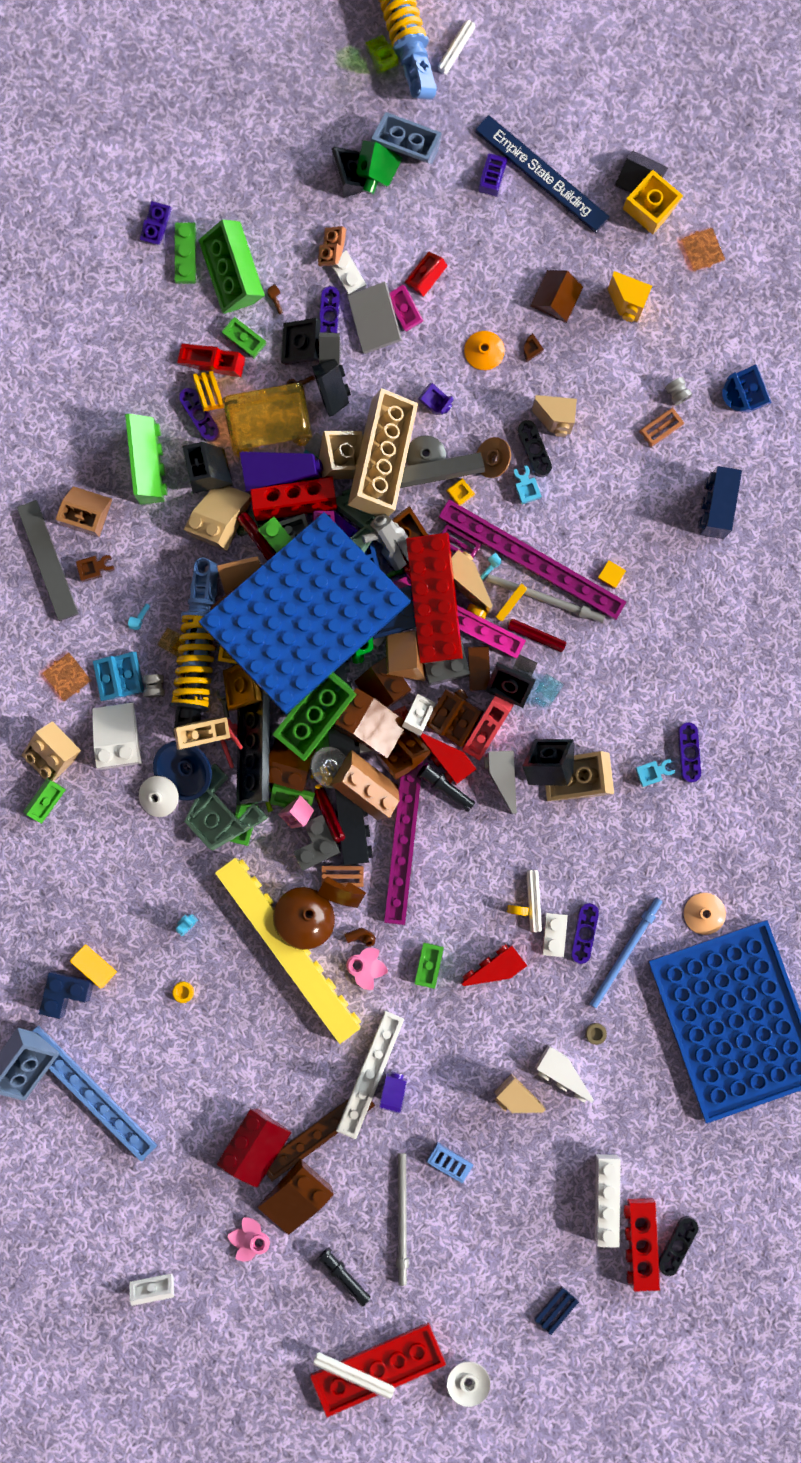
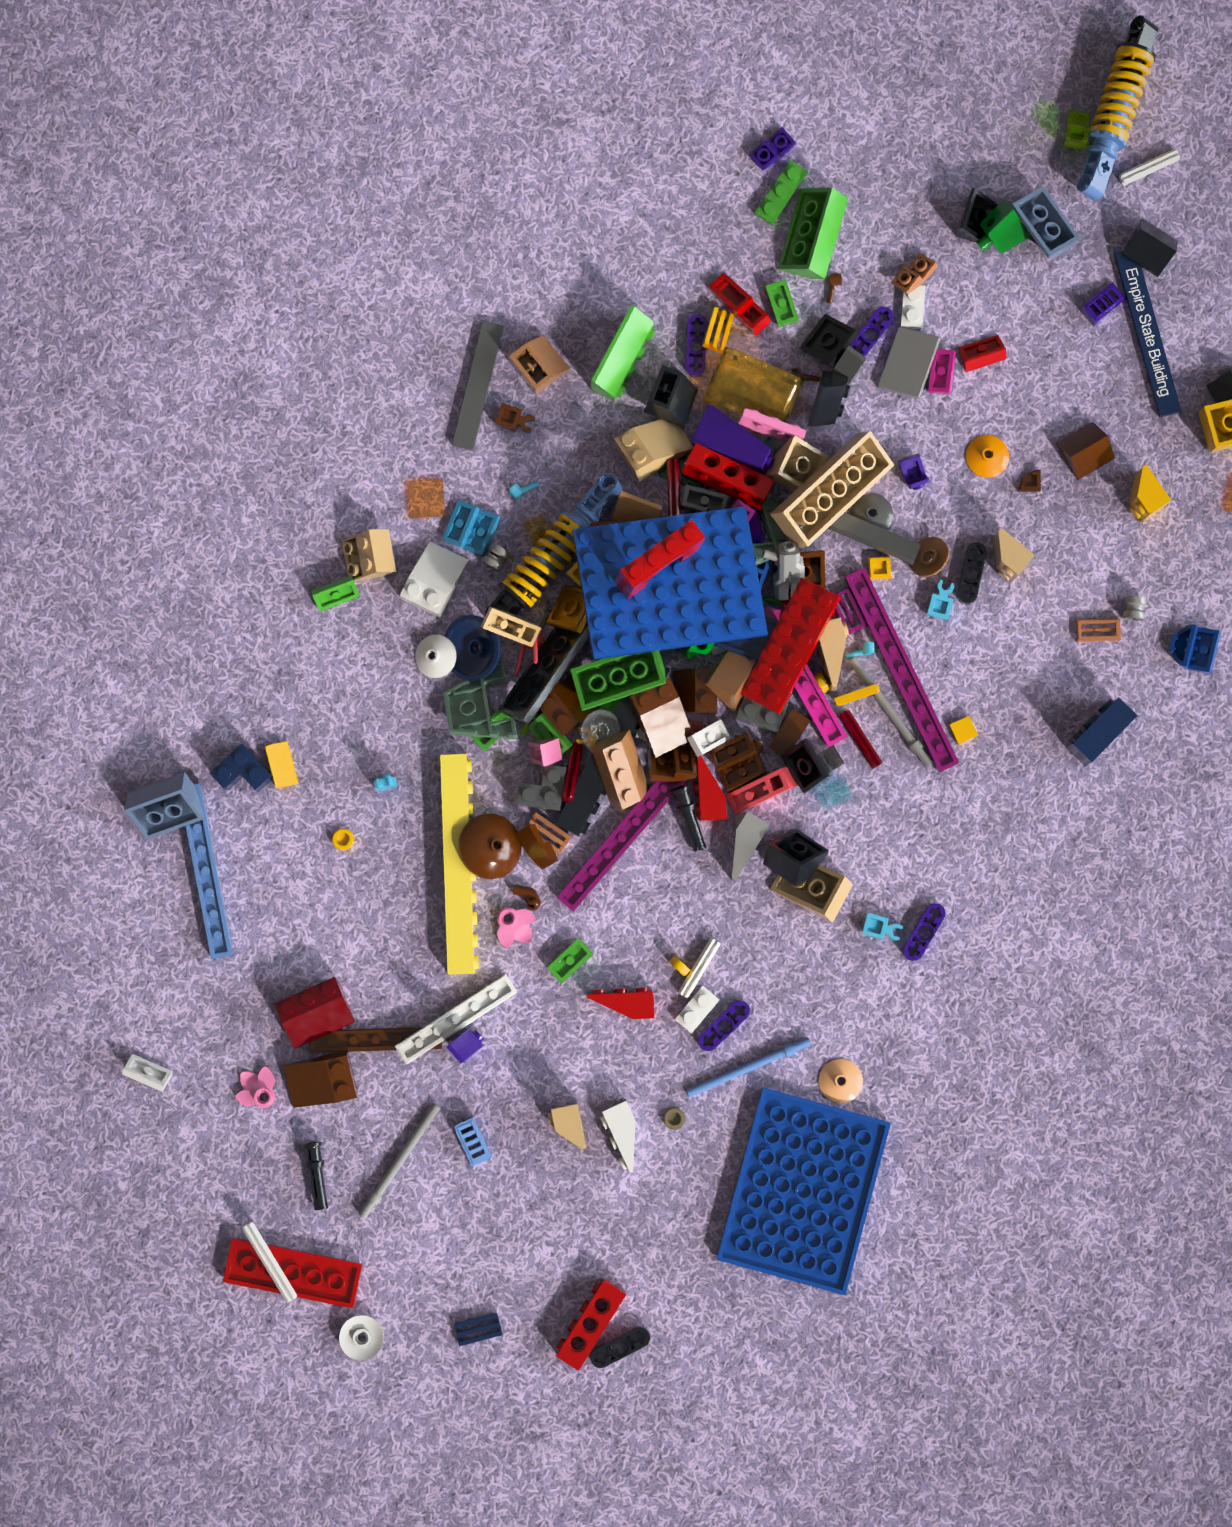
camera: 35 degrees right, 0 degrees up
(275, 534) = (690, 497): bright green plate -> none
(290, 579) = (676, 546): none -> red arch
(299, 437) = (770, 425): none -> bright pink plate
(500, 107) = (1150, 248): none -> black slope
(607, 1200) = (586, 1265): white brick -> none

